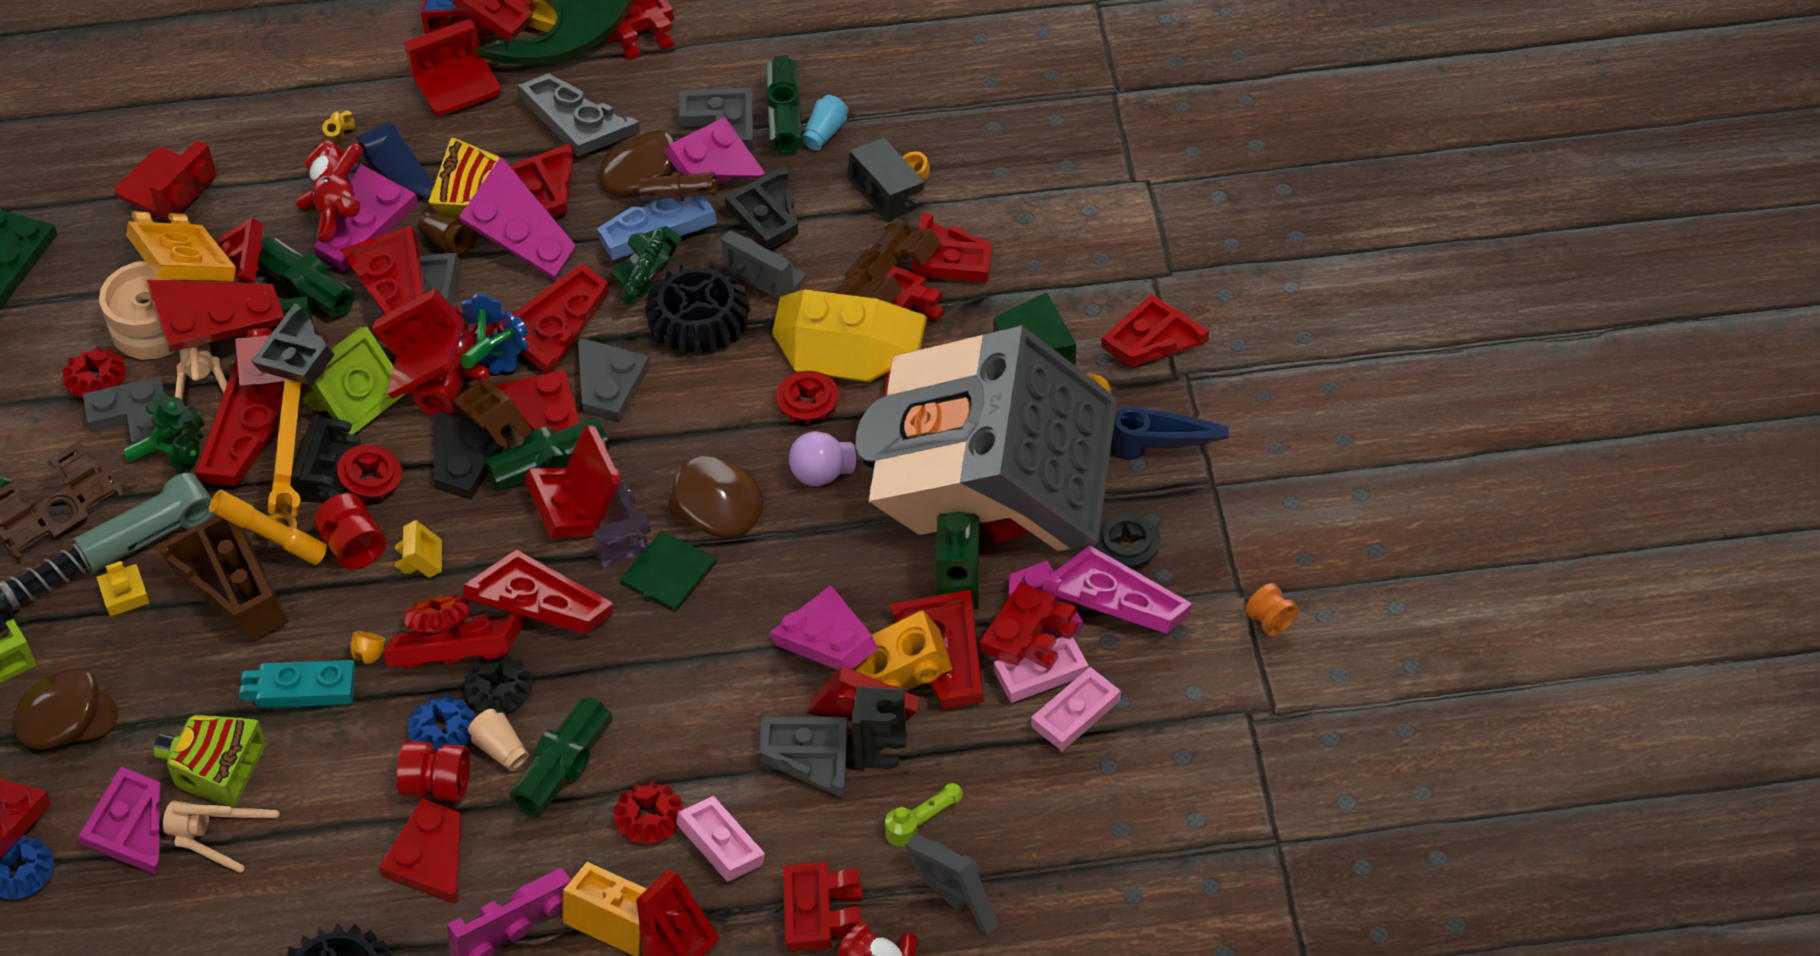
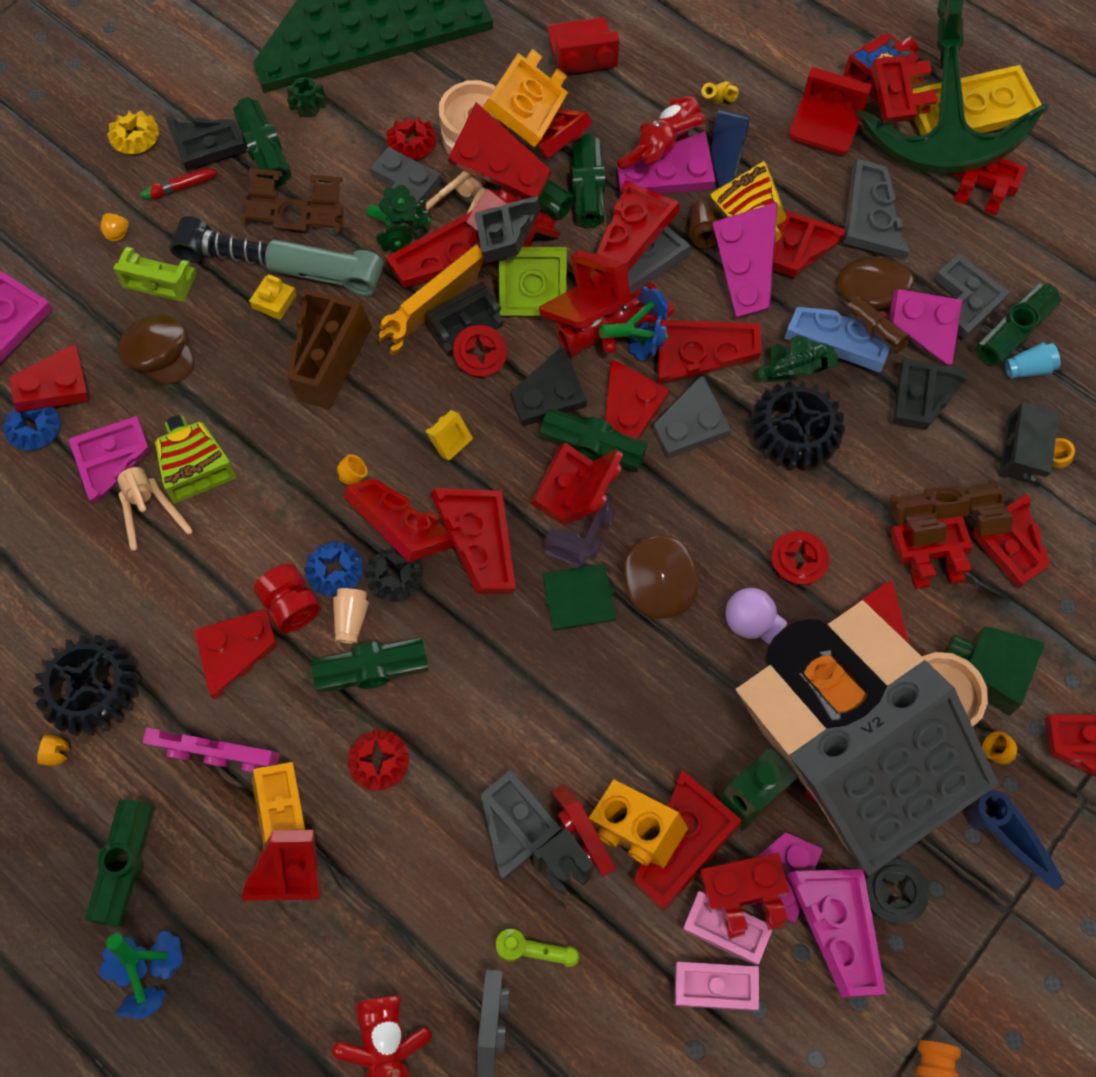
camera: 45 degrees right, 15 degrees up
(248, 517) = (360, 318): light orange piece -> none
(300, 684) = (294, 458): teal hinge -> none
(350, 531) = (421, 382): red wheel -> none
(437, 614) = (413, 499): red gear -> none
(491, 410) = (585, 379): reddish brown hinge -> none
(720, 838) = (392, 829): bright pink plate -> none
(760, 266) = (872, 433): dark grey bracket -> none
(808, 905) = (389, 941): red plate -> none
(826, 632) = (613, 754): dark pink wing -> none
(845, 333) = (869, 541): yellow wedge -> none

